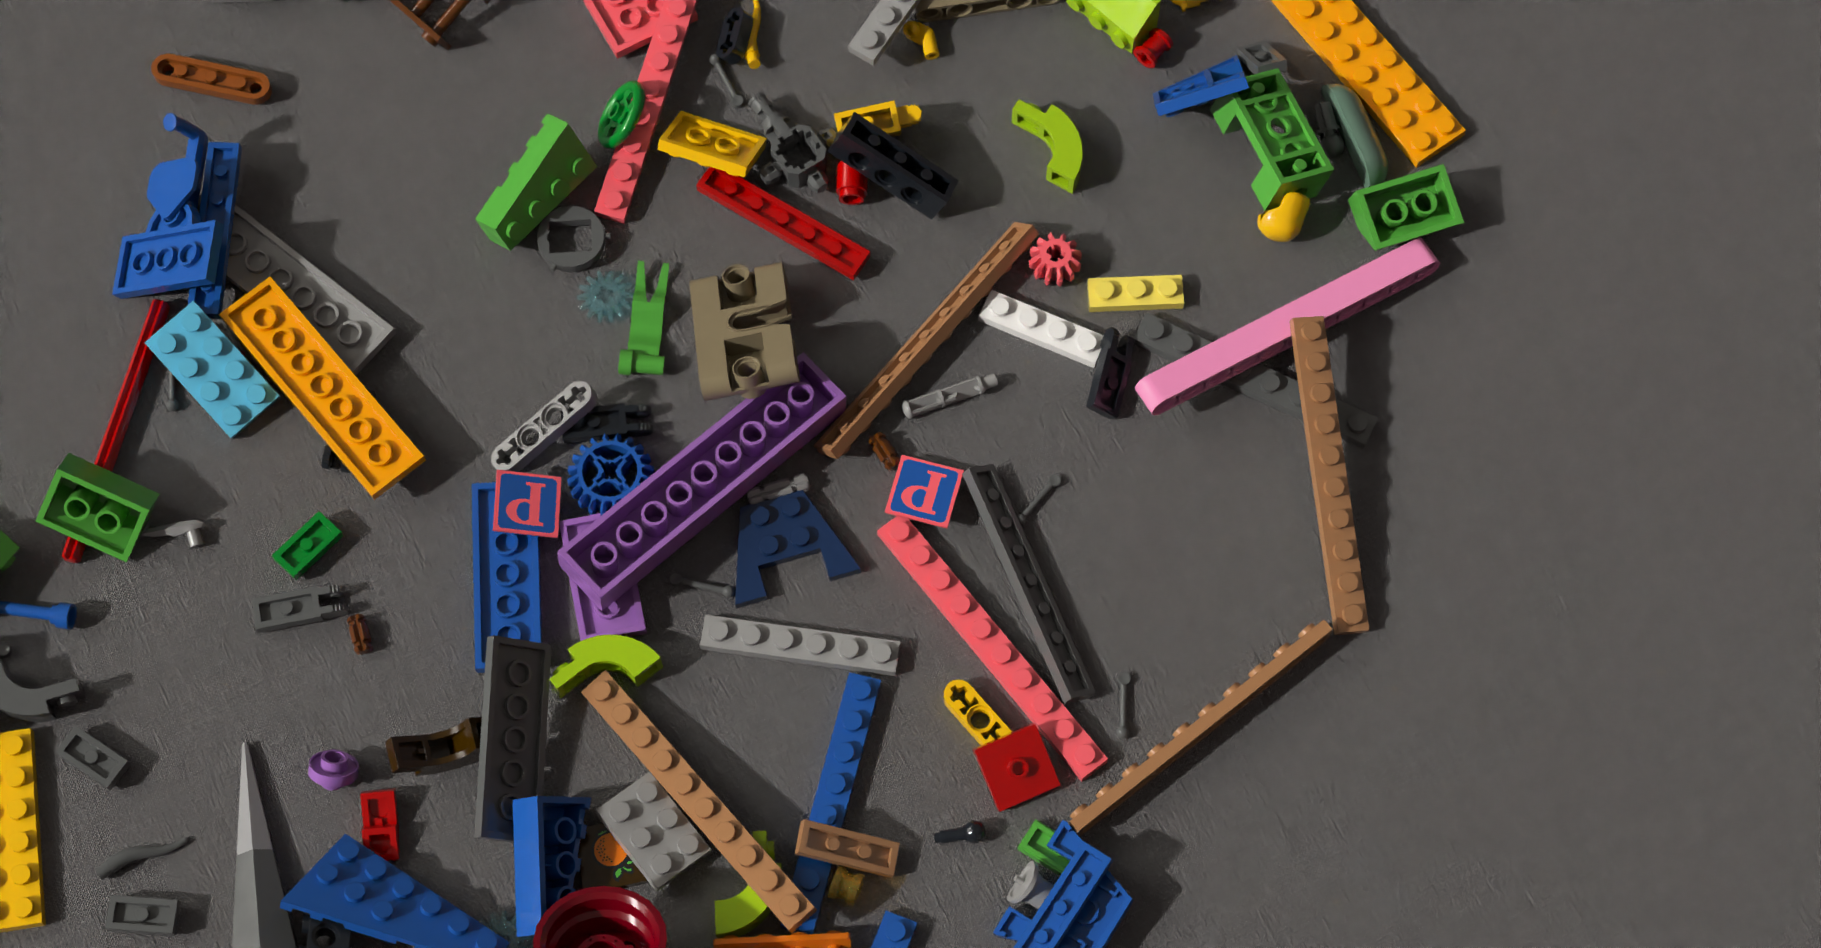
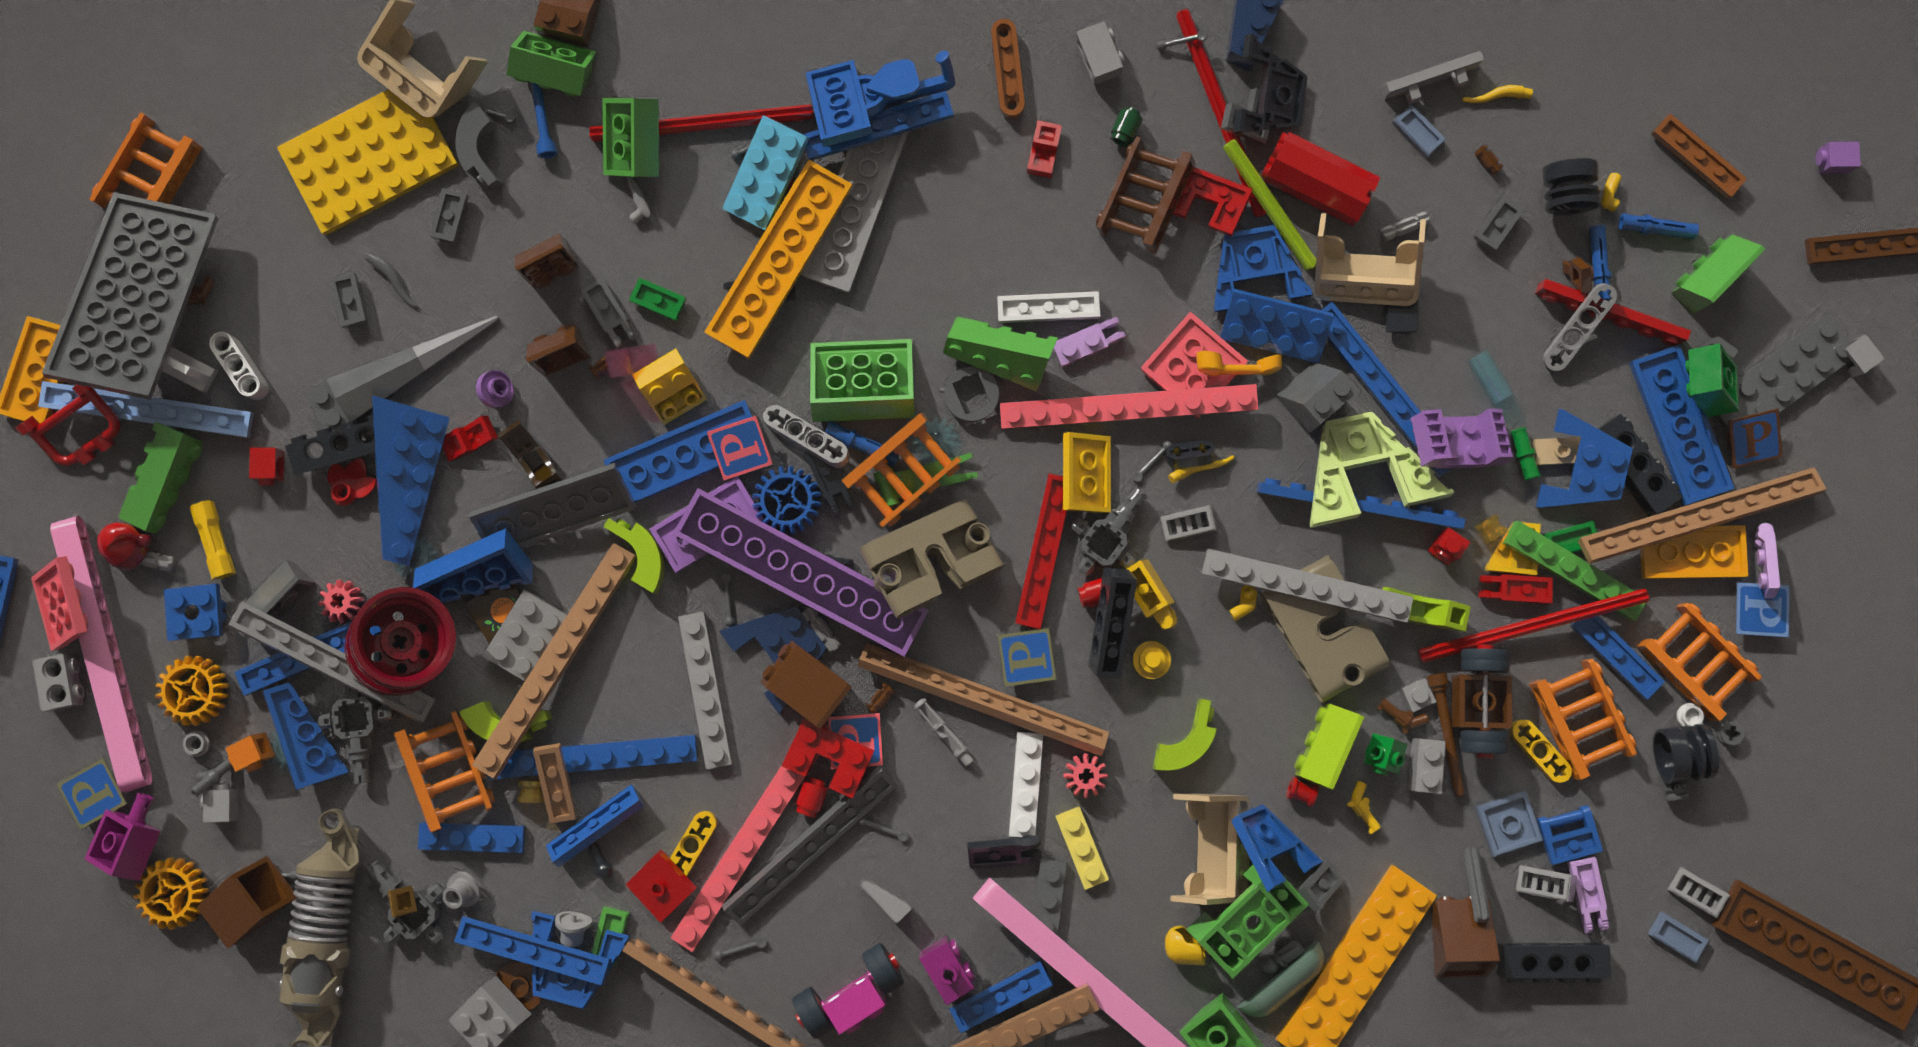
camera: 70 degrees right, 15 degrees up
(202, 651) = (545, 261): none -> reddish brown slope
(318, 672) = (557, 350): none -> reddish brown slope
(321, 74) = (1044, 149): none -> red slope
(367, 598) = (629, 360): none -> clear pink plate
(418, 564) = (669, 387): none -> yellow slope
(505, 126) = (1048, 307): none -> white plate
(505, 348) = (861, 380): none -> bright green slope
(564, 95) = (1086, 342): none -> lavender hinge
(582, 369) = (853, 440): none -> blue pin
(608, 354) = (898, 446): none -> orange fence
(621, 114) = (1084, 392): green plate -> none
(815, 41) = (1212, 526): none -> light grey slope
(838, 515) = (805, 684): none -> reddish brown slope
(897, 276) = (1026, 657): none -> piece
(908, 527) = (850, 755): none -> red plate
(916, 823) = (594, 825): none -> blue plate
(950, 150) = (1151, 660): none -> yellow plate
(972, 562) = (811, 797): none -> red brick
(1128, 515) = (892, 905): none -> light grey slope
(1182, 149) = (1220, 850): none -> tan windscreen
(1225, 470) = (947, 969): none -> magenta brick
(1227, 583) = (855, 1001): none -> brick
(1275, 426) = (1001, 996): none -> blue plate

